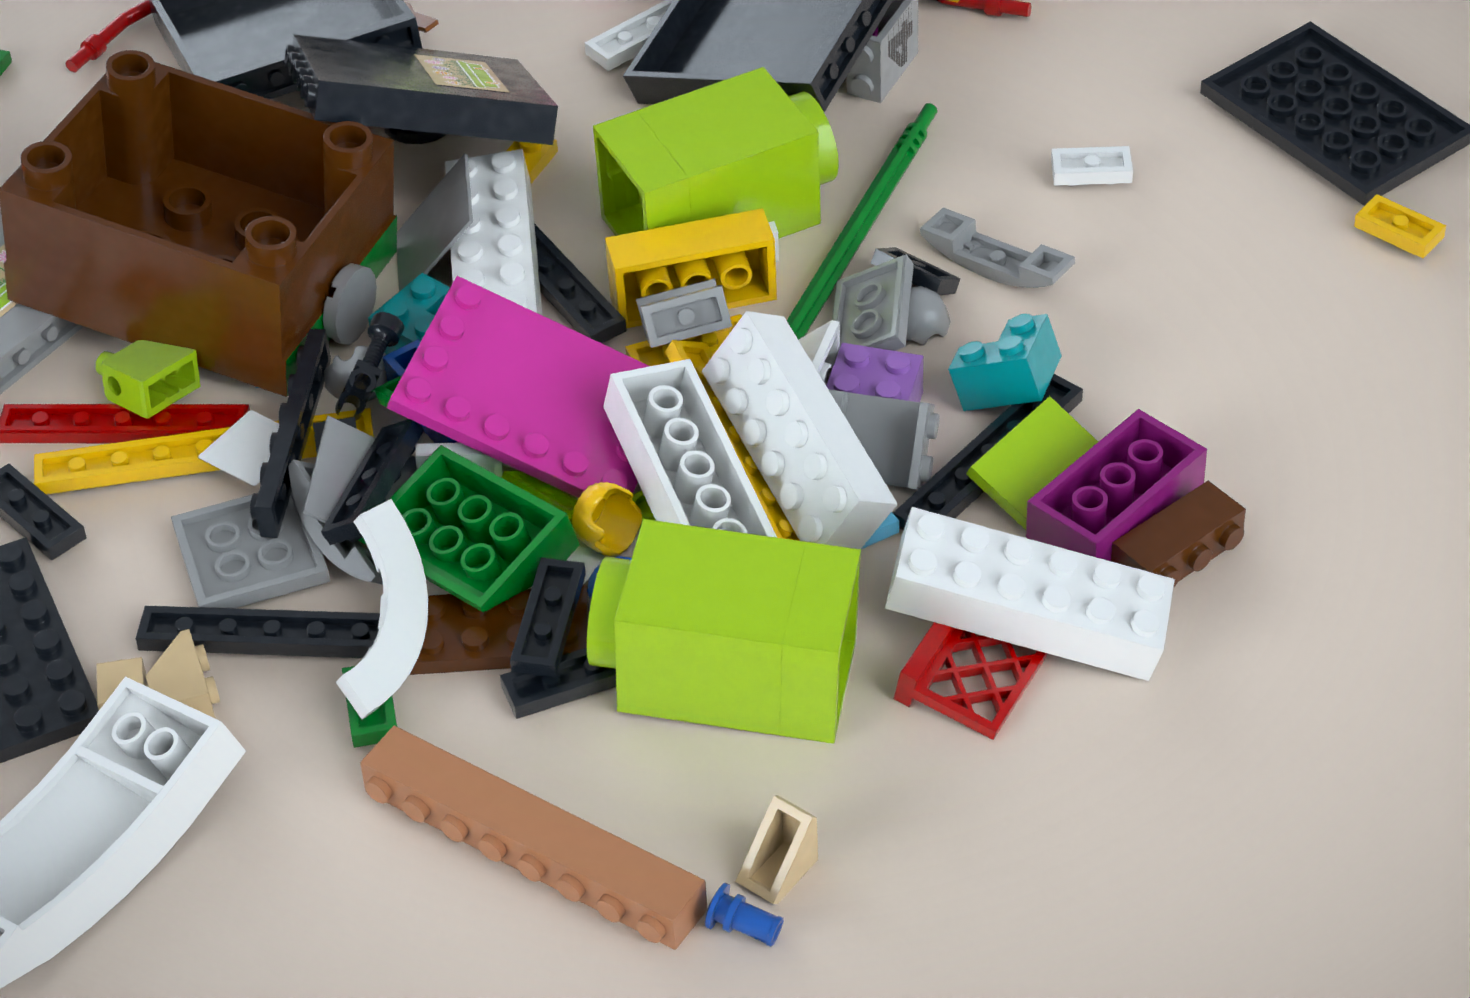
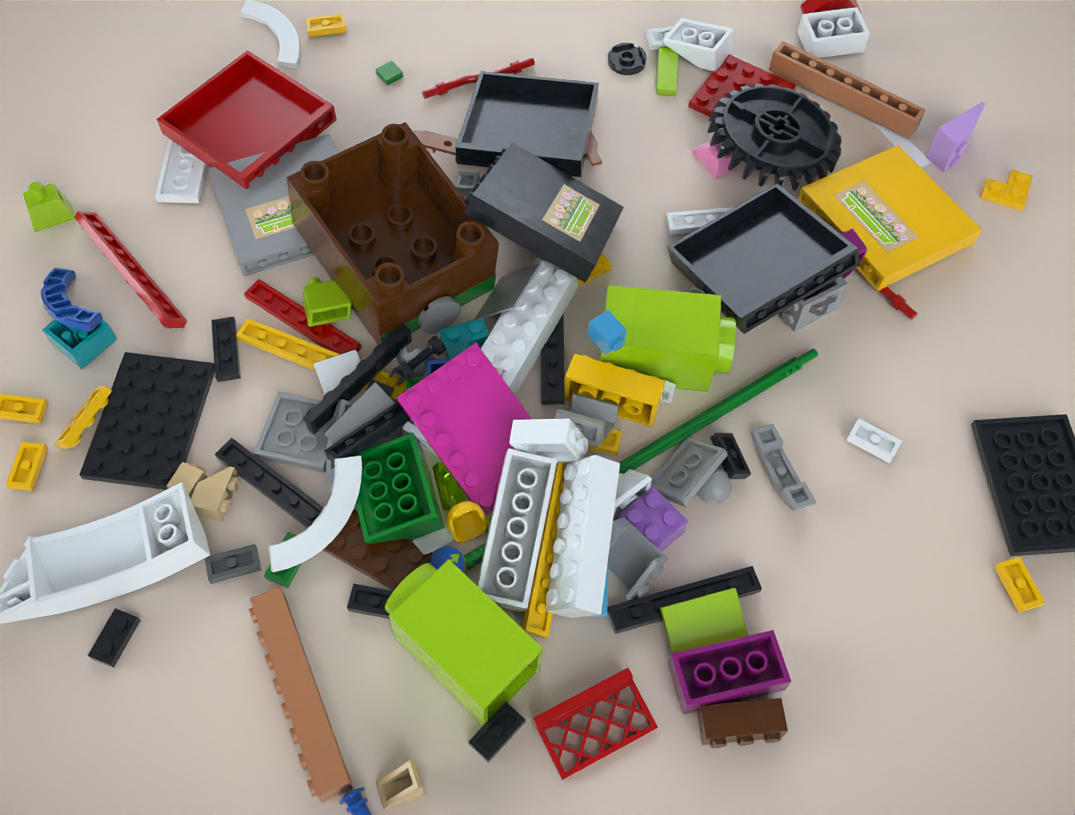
camera: 30 degrees right, 15 degrees up
(172, 940) = (114, 638): none -> black plate
(286, 752) = (232, 563): none -> dark grey plate
(548, 617) = (393, 567): black plate -> none
(644, 169) = (607, 332): none -> dark azure brick
(656, 315) = (549, 438): none -> white window
(860, 729) = (497, 732): none -> black plate
(1010, 369) = (732, 556): teal brick -> none
(1031, 594) = (631, 716): white brick -> none

